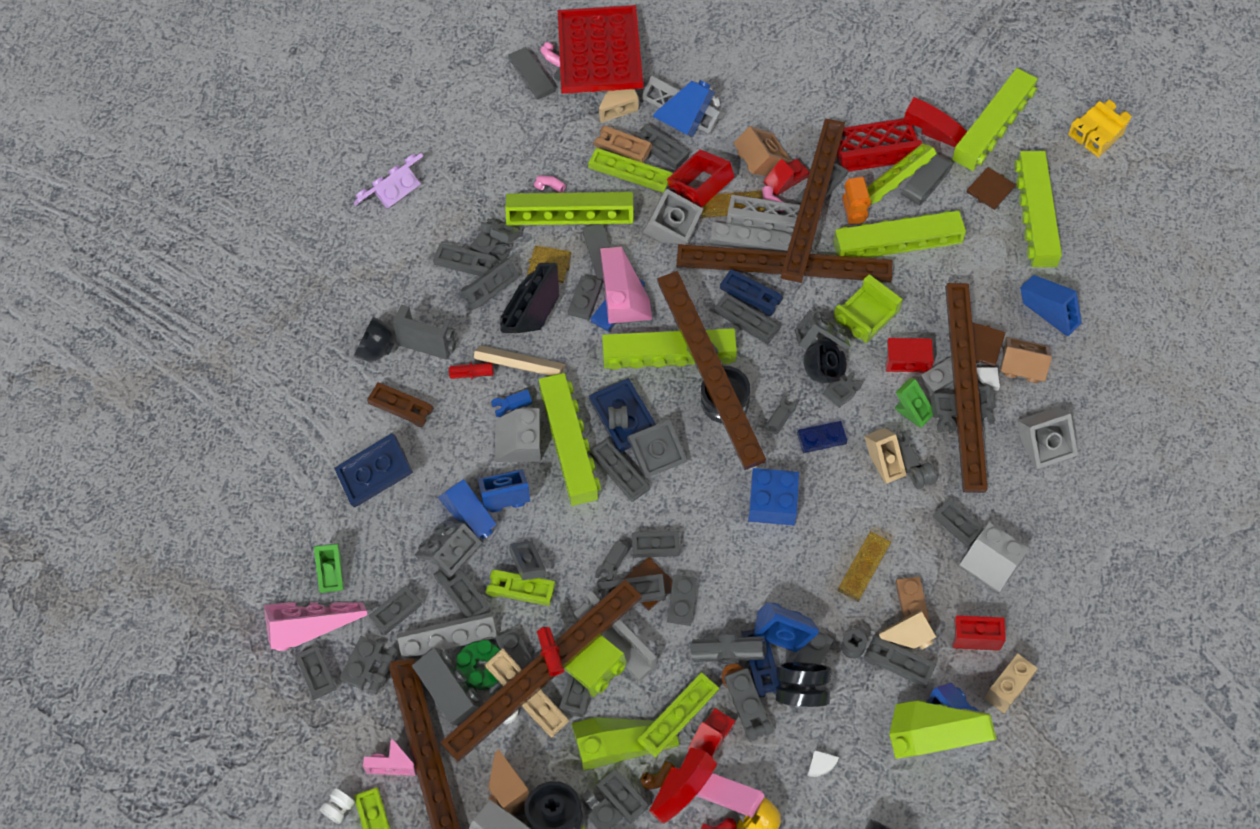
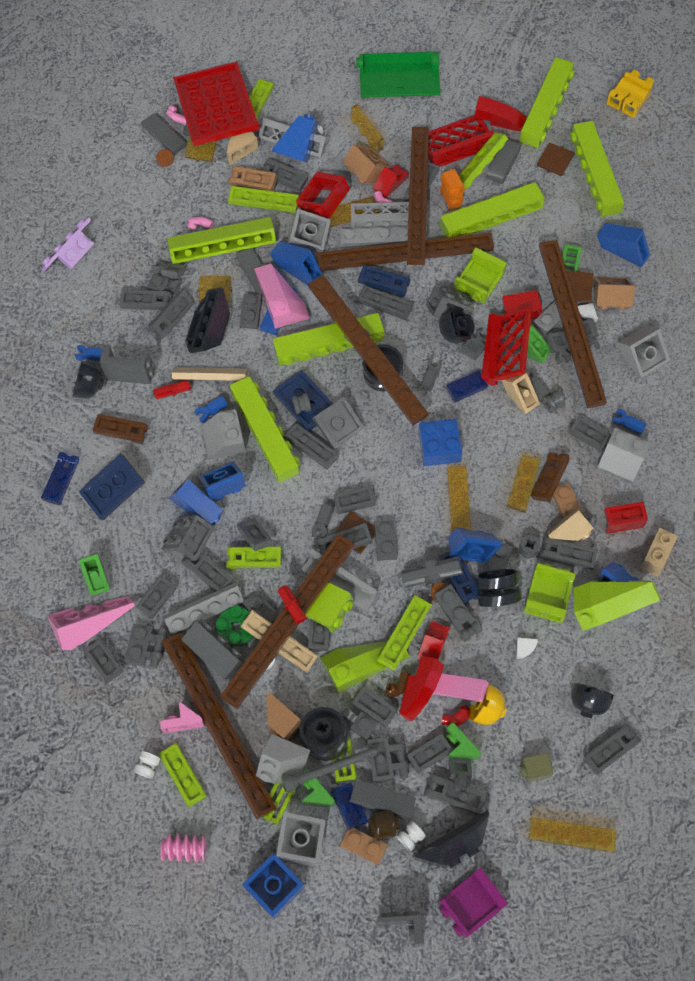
camera: 10 degrees left, 5 degrees up
(316, 448) = (60, 478): none -> clear blue plate
(385, 310) = (89, 353): none -> blue bar
(526, 101) = (164, 158): none -> dark orange tile
(569, 102) = (200, 152): none -> clear yellow piece
(651, 250) = (296, 261): none -> blue slope
(654, 50) = (260, 95): none -> lime tile
(771, 110) = (366, 128): none -> clear yellow plate
(782, 567) = (458, 497): none -> clear yellow plate
(824, 54) = (399, 74): none -> green door
(866, 396) = (493, 346): none -> red fence
(866, 704) = (549, 592): none -> lime panel
(898, 565) = (550, 477): none -> reddish brown plate
(987, 300) = (574, 250): none -> bright green slope
(1010, 519) = (629, 422): none -> blue bar

